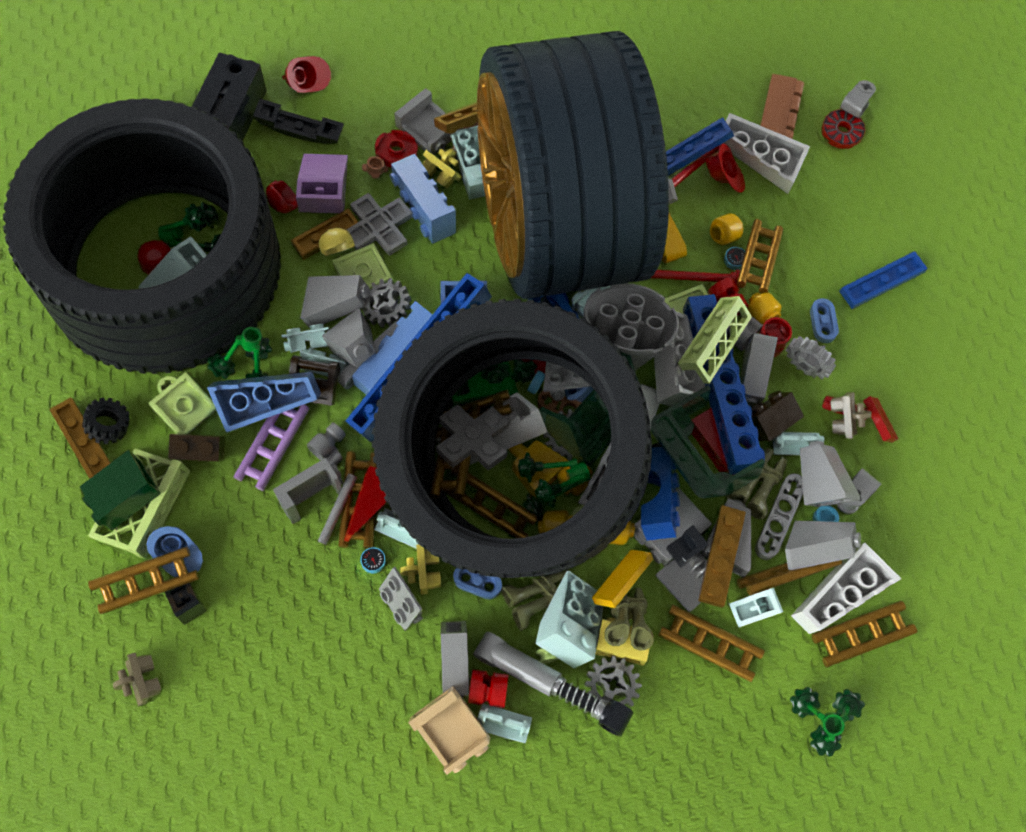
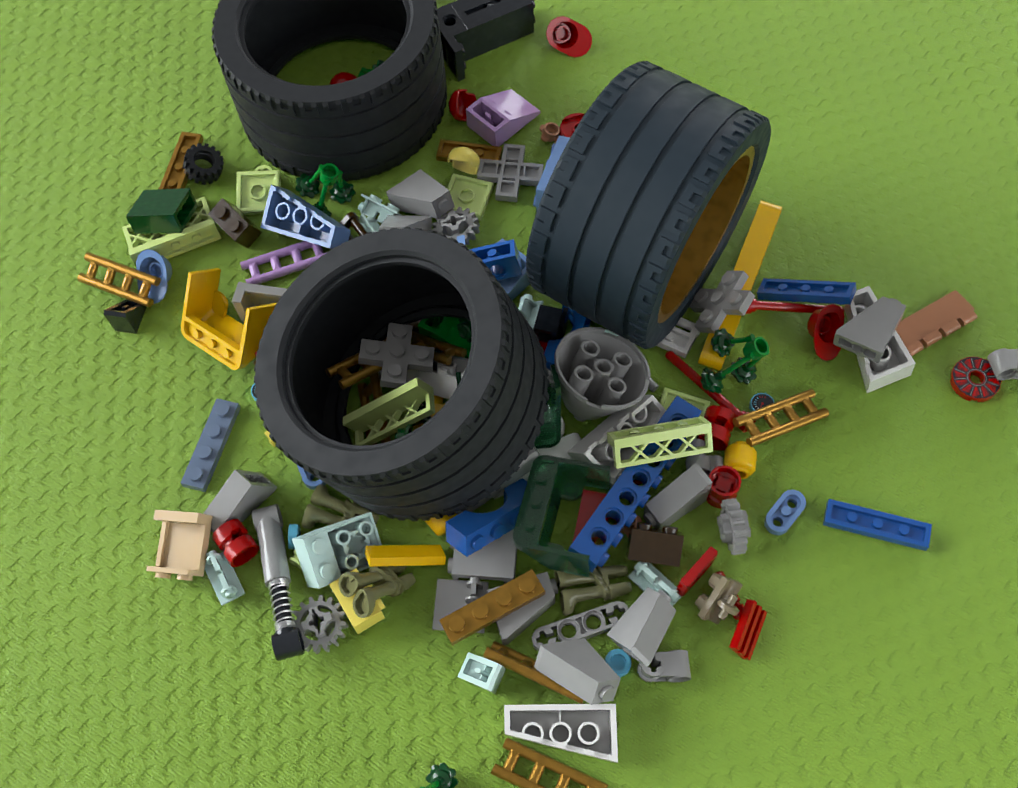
camera: 55 degrees right, 5 degrees down
(142, 689) = (47, 336): dark tan hips -> none
(291, 546) = (215, 332): none -> yellow windscreen
(297, 126) = (526, 66): black slope -> none
(378, 638) = (210, 445): none -> sand blue plate
(400, 600) = (248, 433): light grey hinge -> none
(506, 479) = (391, 407): none -> yellowish green fence
(524, 642) = (294, 531): none -> medium azure tile
(687, 547) = (471, 575): black panel -> none
(696, 645) = (439, 675): pearl gold bar -> none
(699, 242) = (743, 368): none -> dark green plant
(726, 229) = (775, 376): yellow head -> none
(766, 143) = (871, 329): none -> light grey slope
(815, 409) = (696, 571): none -> red tile

